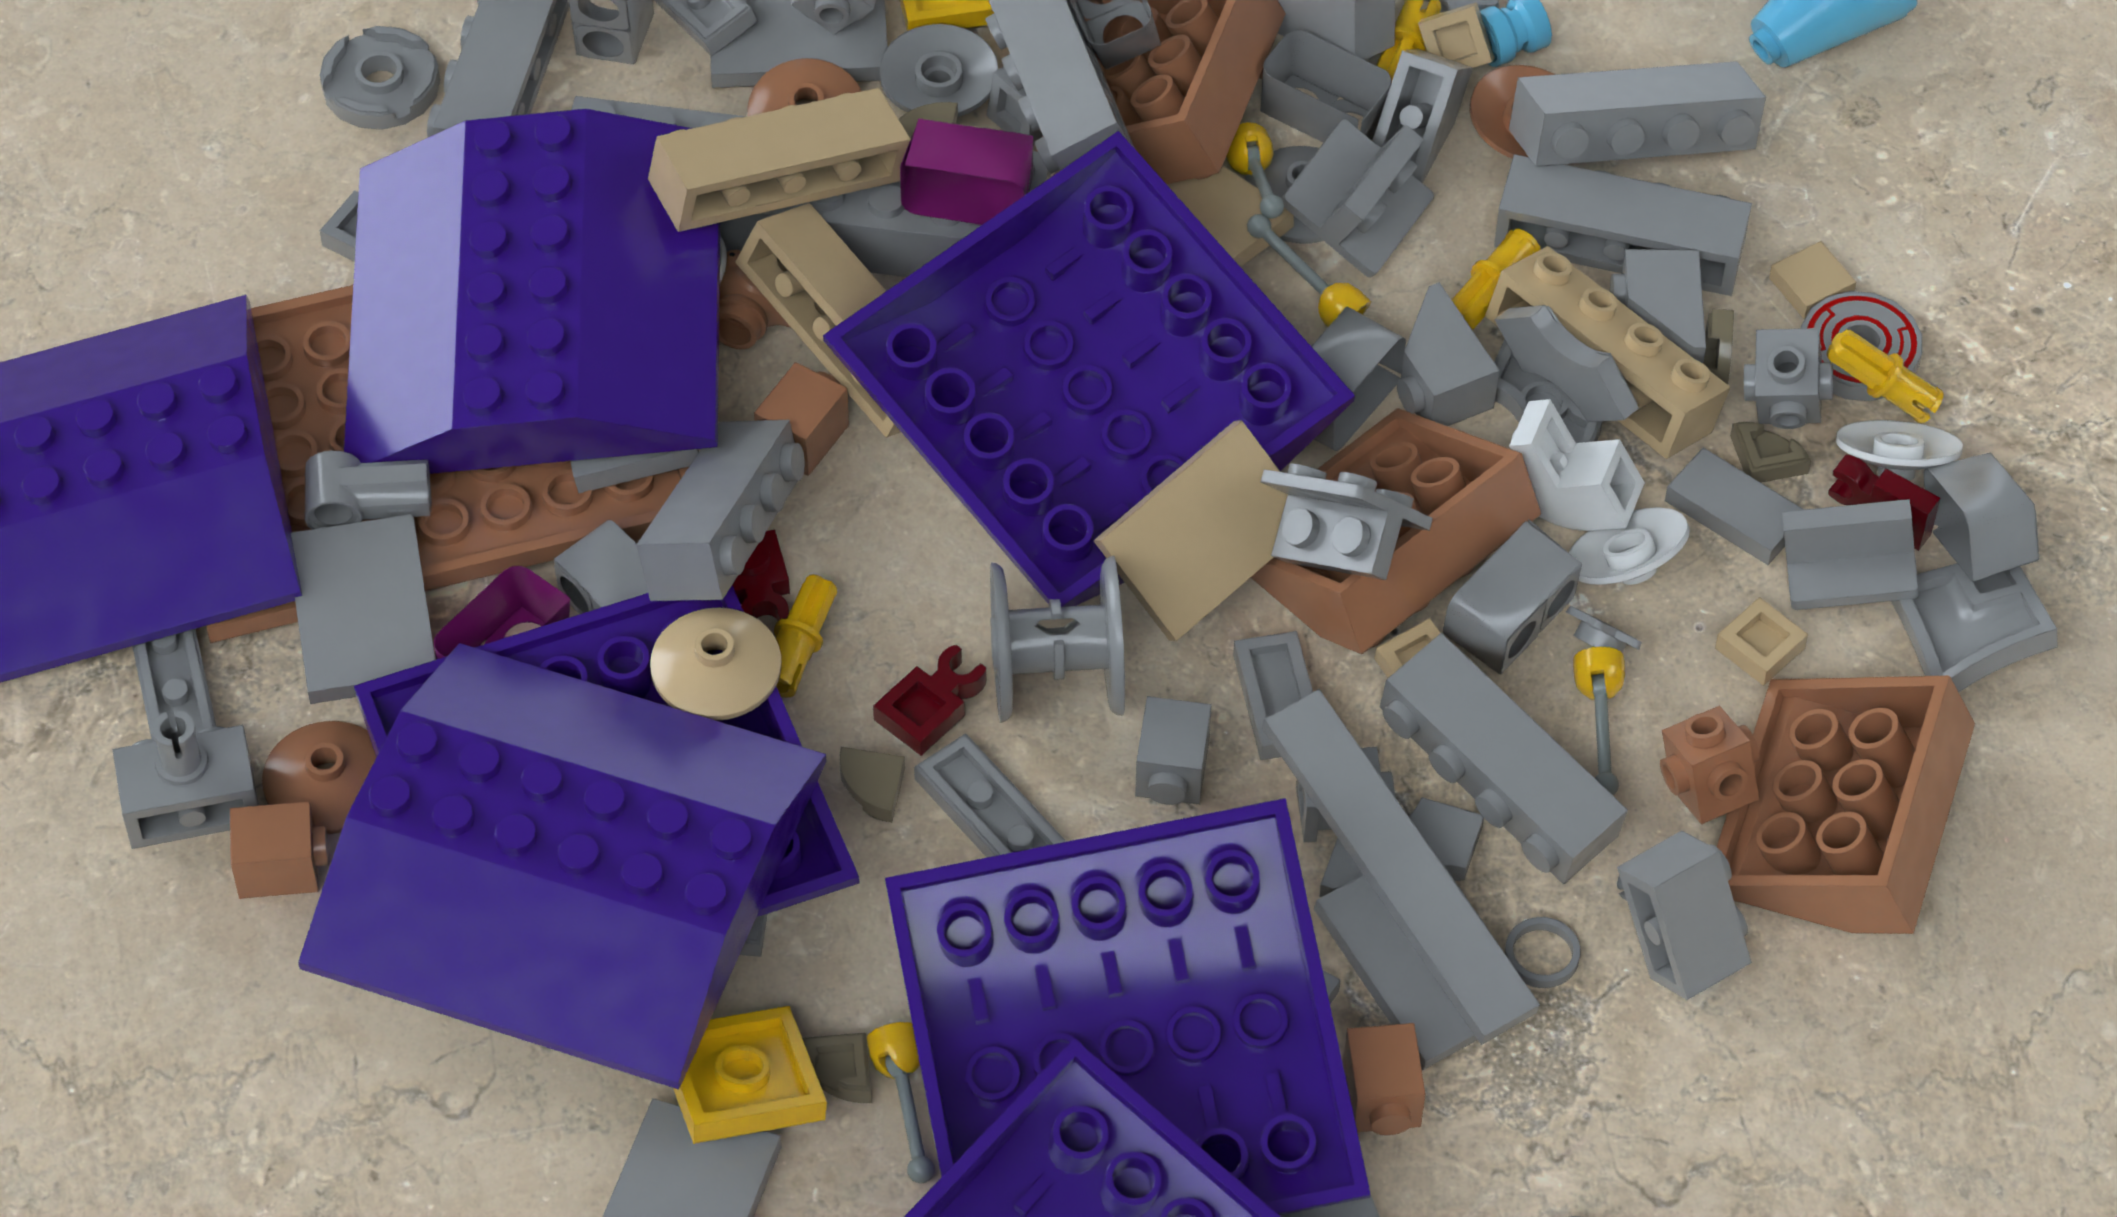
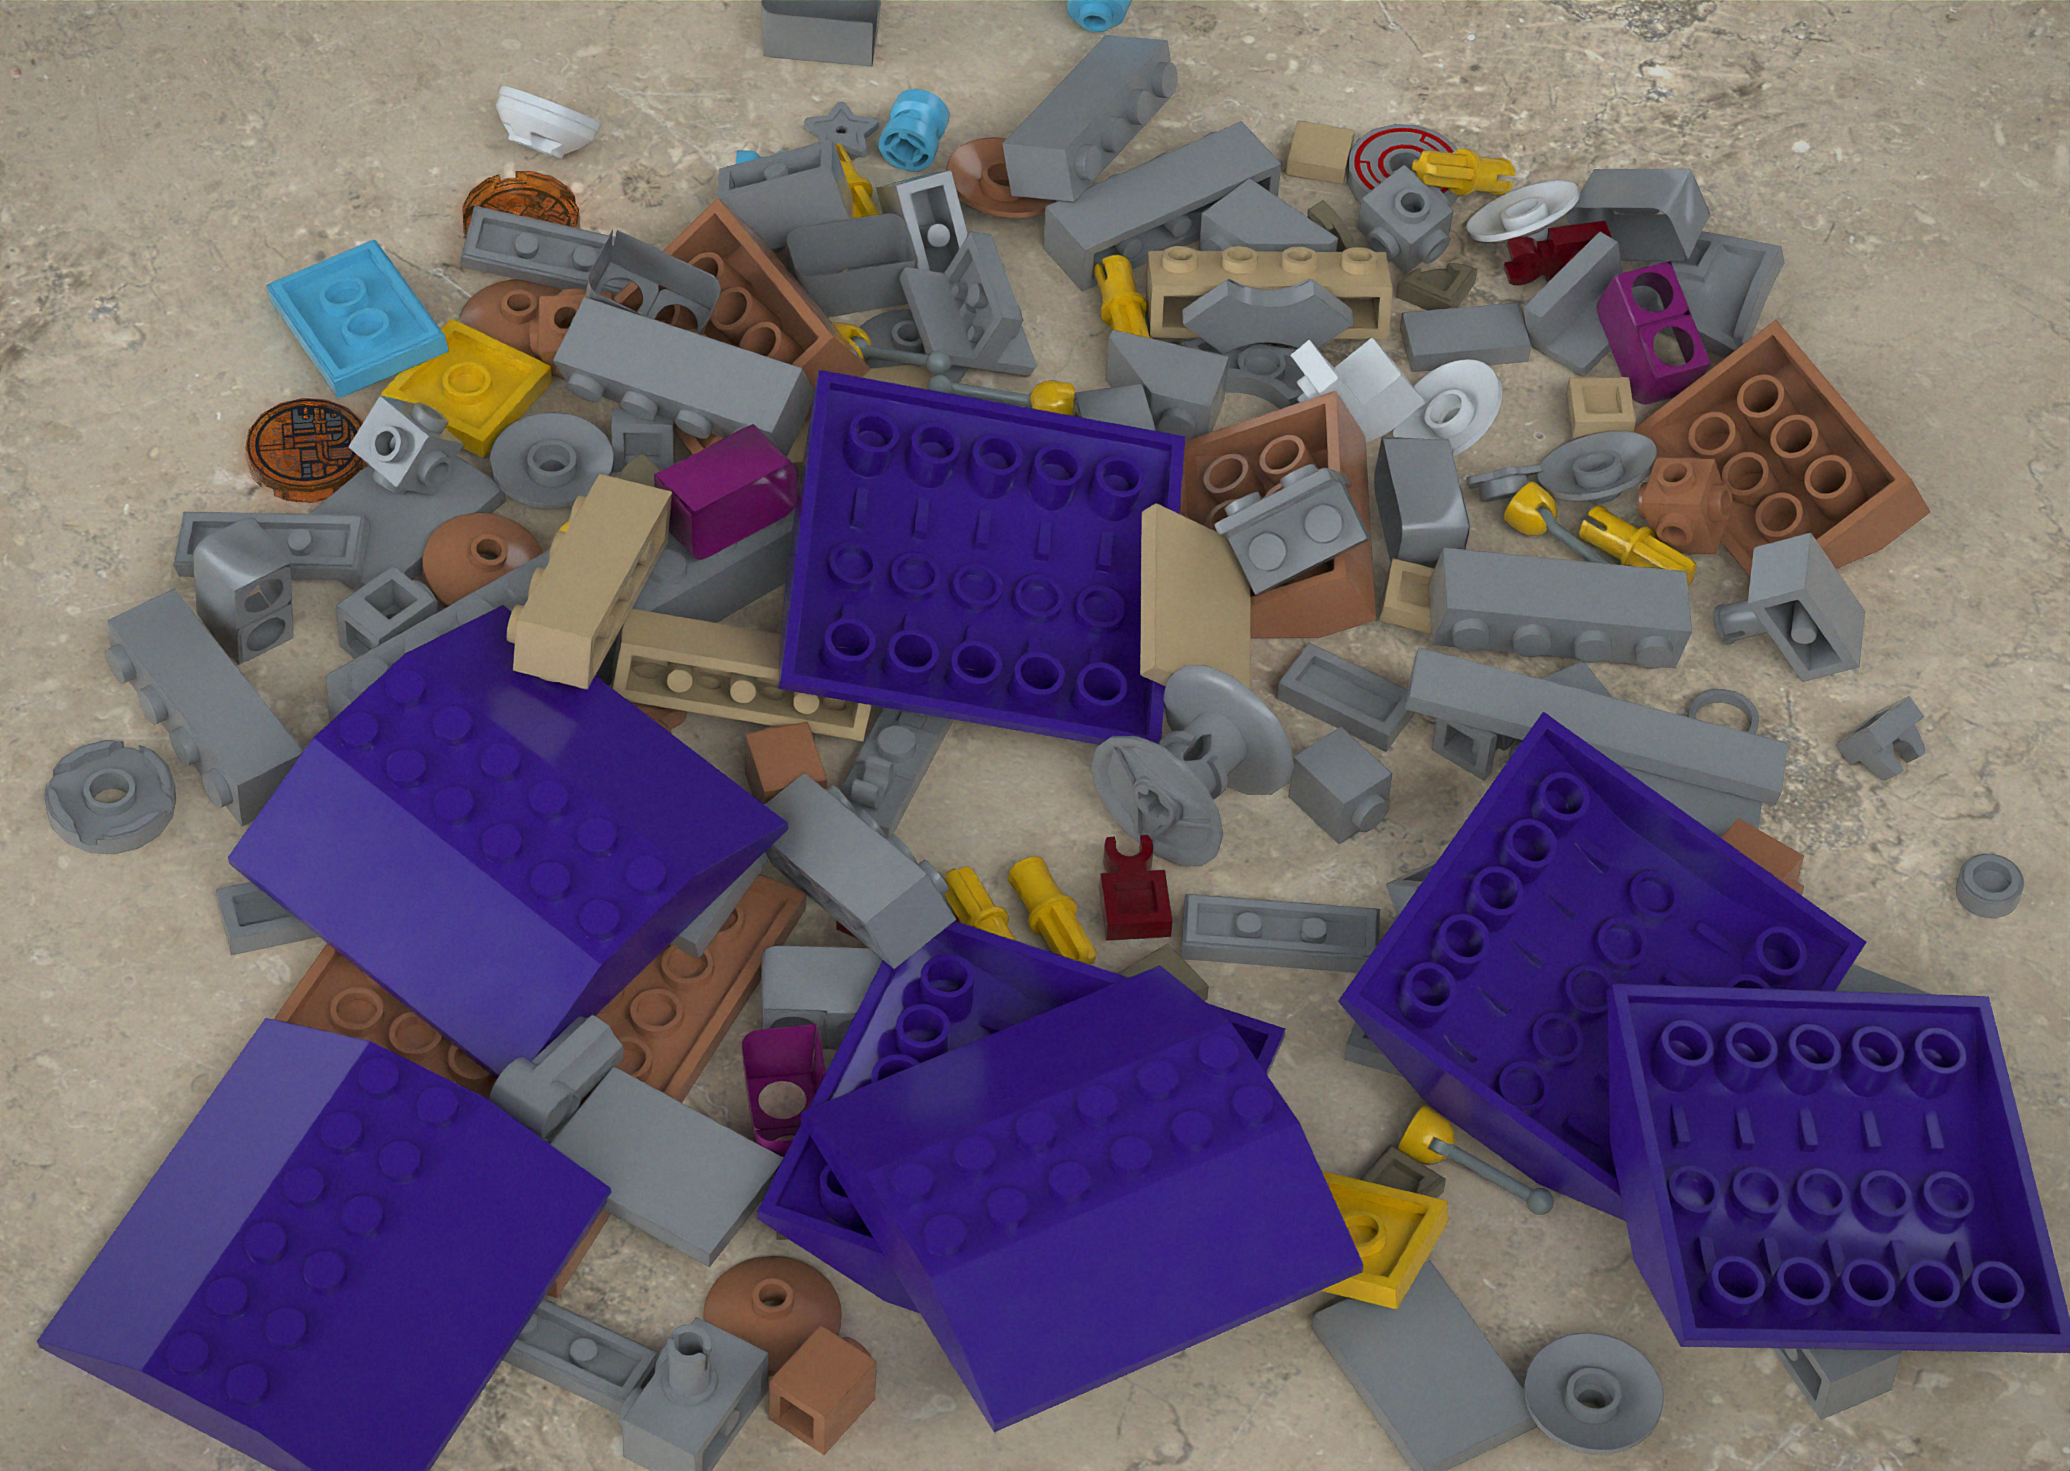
camera: 50 degrees left, 5 degrees down
(690, 84) = (382, 611): none -> light grey brick
(722, 683) = (995, 992): tan dish -> none
(856, 668) = (1050, 911): none -> yellow axle
(872, 480) = (893, 764): none -> light grey plate
(1458, 36) = (891, 157): tan plate -> none
(1622, 1062) = (1882, 733): none -> light grey tile
(1641, 769) = (1633, 545): none -> yellow axle
(1688, 679) = (1597, 466): none -> light grey dish
(1887, 630) = (1634, 353): none -> magenta piece

